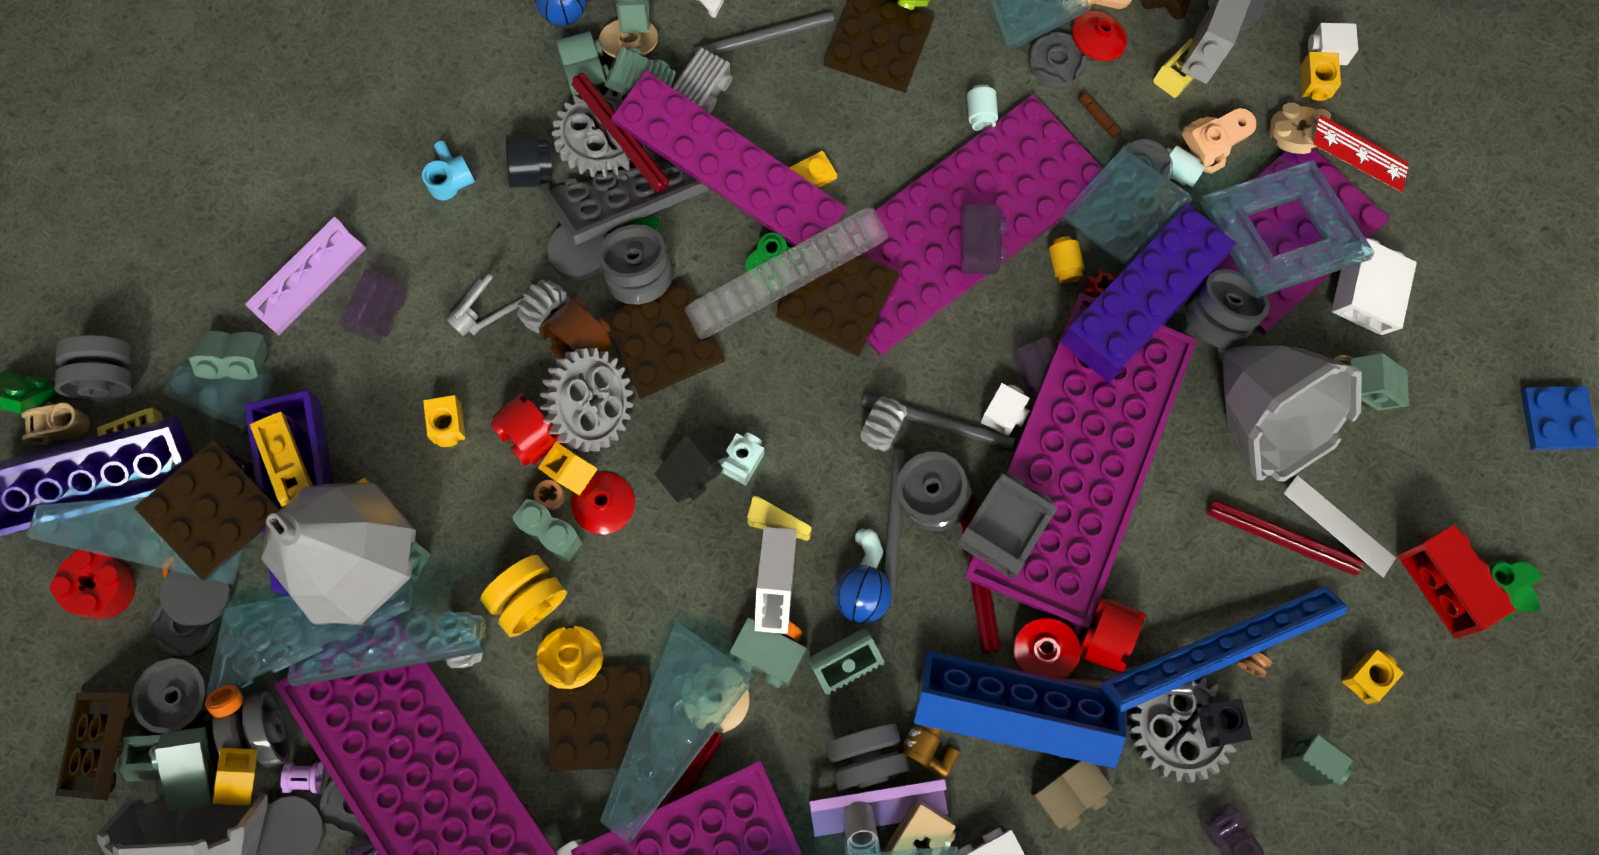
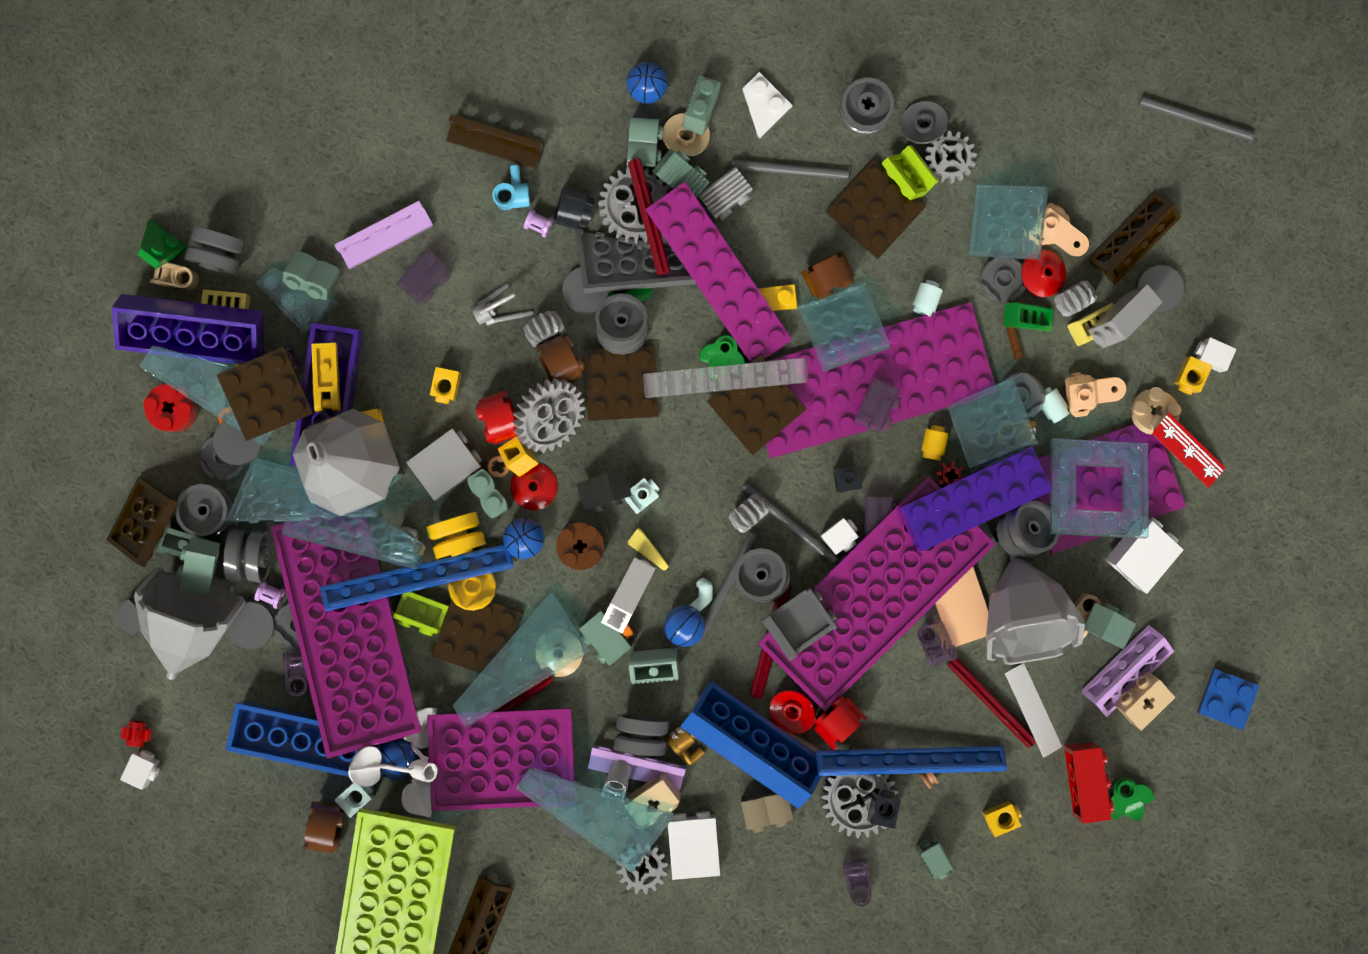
camera: 20 degrees right, 15 degrees up
(224, 701) = (237, 530): orange tile -> none
(235, 776) = (230, 584): yellow brick -> none
(405, 128) = (494, 142): none -> dark brown fence
(477, 516) = (445, 464): none -> light grey brick
(487, 673) = (409, 579): none -> blue tile
(491, 195) = (538, 223): none -> lavender bush
(514, 718) = (421, 612): none -> lime bracket
(613, 567) = (523, 538): none -> blue piece
(699, 532) = (569, 538): none -> reddish brown brick
(858, 119) = (829, 274): none -> reddish brown brick
(902, 171) = (844, 327): none -> clear light blue plate
(984, 339) = (847, 479): none -> black brick
(1102, 85) = (1014, 317): none -> green slope
(1149, 42) = (1075, 298): none -> light grey gear
(1185, 491) = (936, 646): none -> clear purple piece
(1196, 441) = (964, 610): none -> light nougat tile
(1423, 429) = (1126, 668): none -> lavender fence
(1466, 456) = (1144, 700): none -> tan brick

